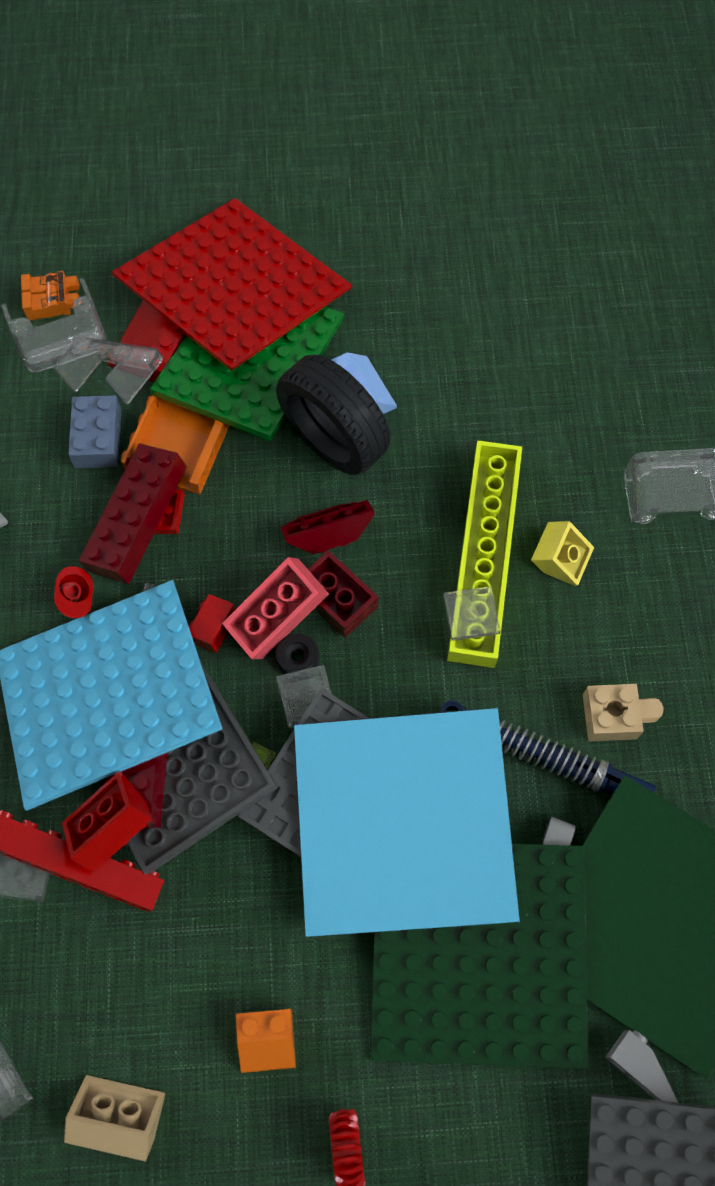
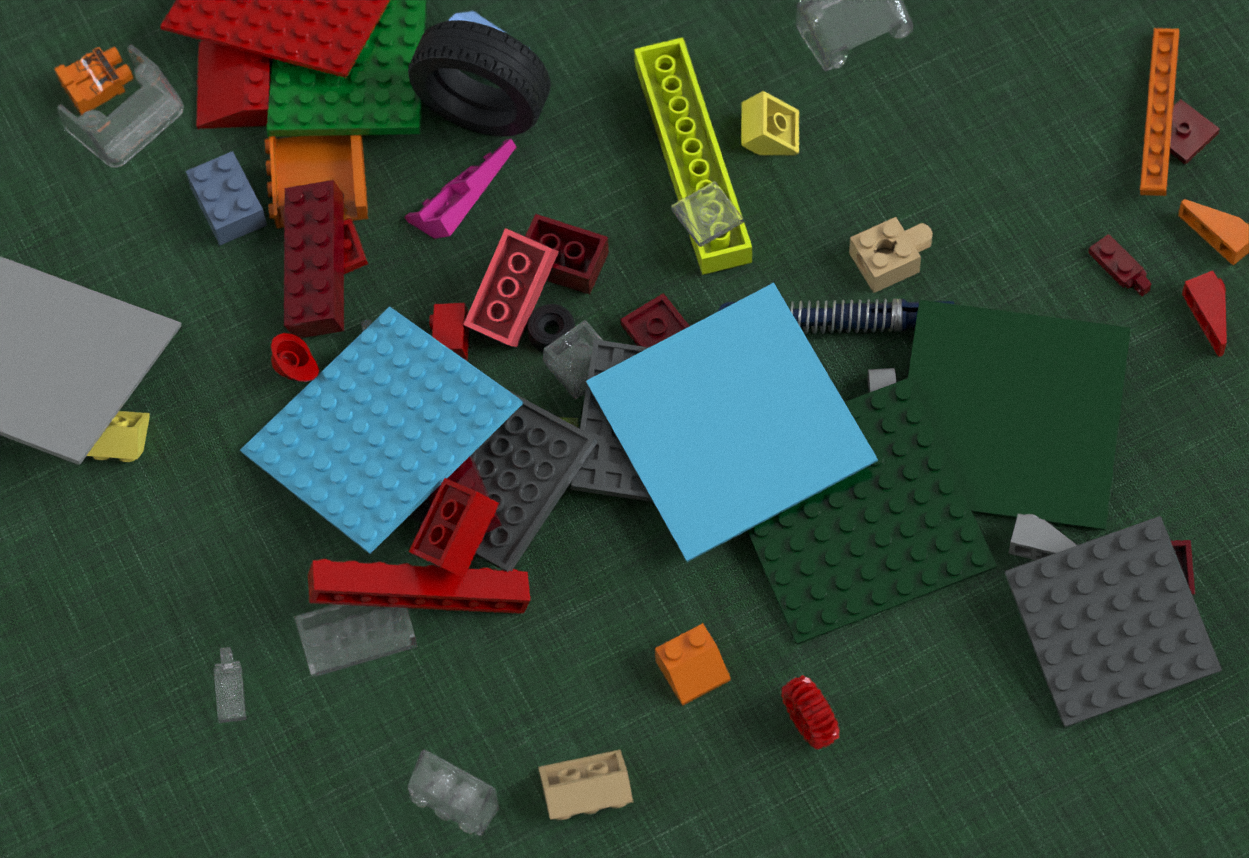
camera: 20 degrees left, 5 degrees down
(133, 362) = (243, 105): clear windscreen -> none
(271, 510) = (453, 202): none -> dark pink wedge
(329, 527) = (524, 193): dark red wedge -> none
(386, 693) = (653, 322): none -> dark red plate

